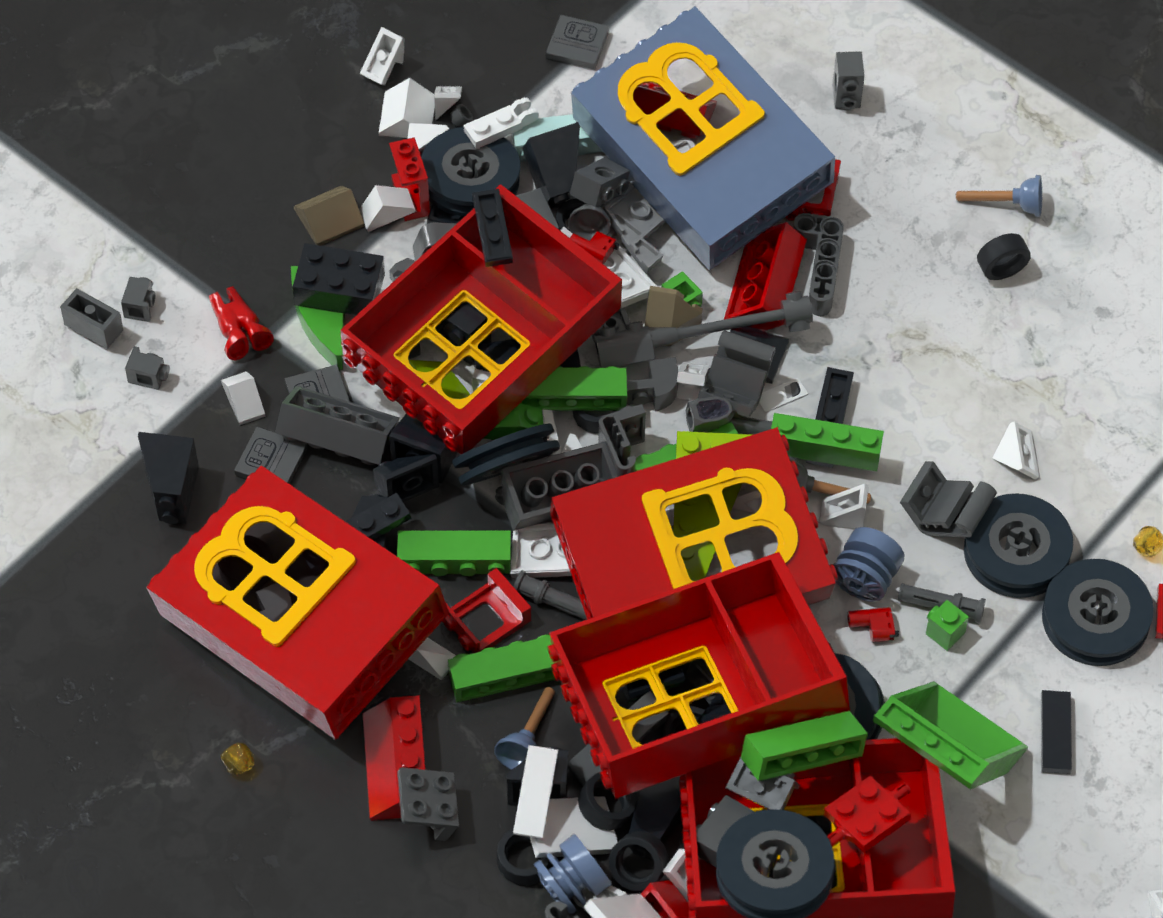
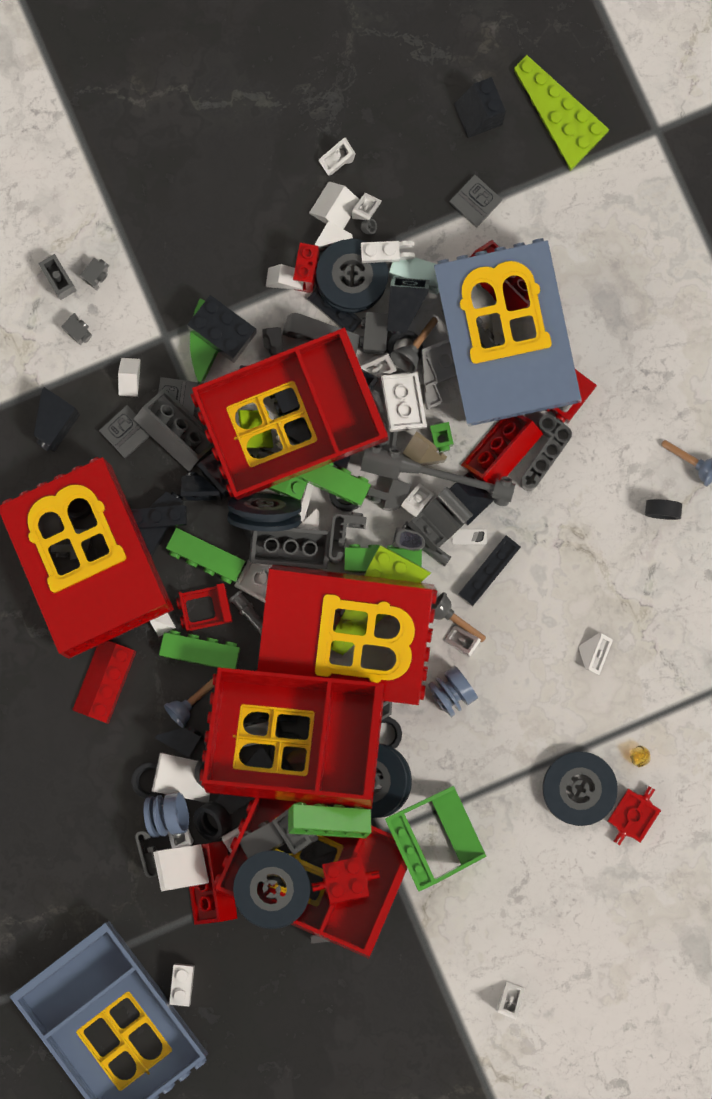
camera: 25 degrees right, 25 degrees up
(237, 317) = (149, 318): red piece -> none
(237, 758) = (11, 635): clear yellow piece -> none
(330, 215) = (246, 263): dark tan slope -> none
(429, 800) = (105, 723): dark grey bracket -> none
(492, 227) = (322, 359): black tile -> none
(535, 792) = (167, 756): white tile -> none
(599, 246) = (401, 381): red piece -> none
(600, 182) = (424, 335): dark grey brick -> none
(830, 441) = (472, 593): bright green brick -> none
(848, 80) = (636, 324): dark grey brick -> none
(879, 622) = (442, 726): red piece -> none
(945, 505) = (526, 672): dark grey piece -> none
(946, 624) = (481, 752): bright green brick -> none
(971, 607) = (496, 741): dark grey pin -> none
(1023, 521) = (575, 705): black wheel -> none
(1056, 732) = (510, 853): black tile -> none

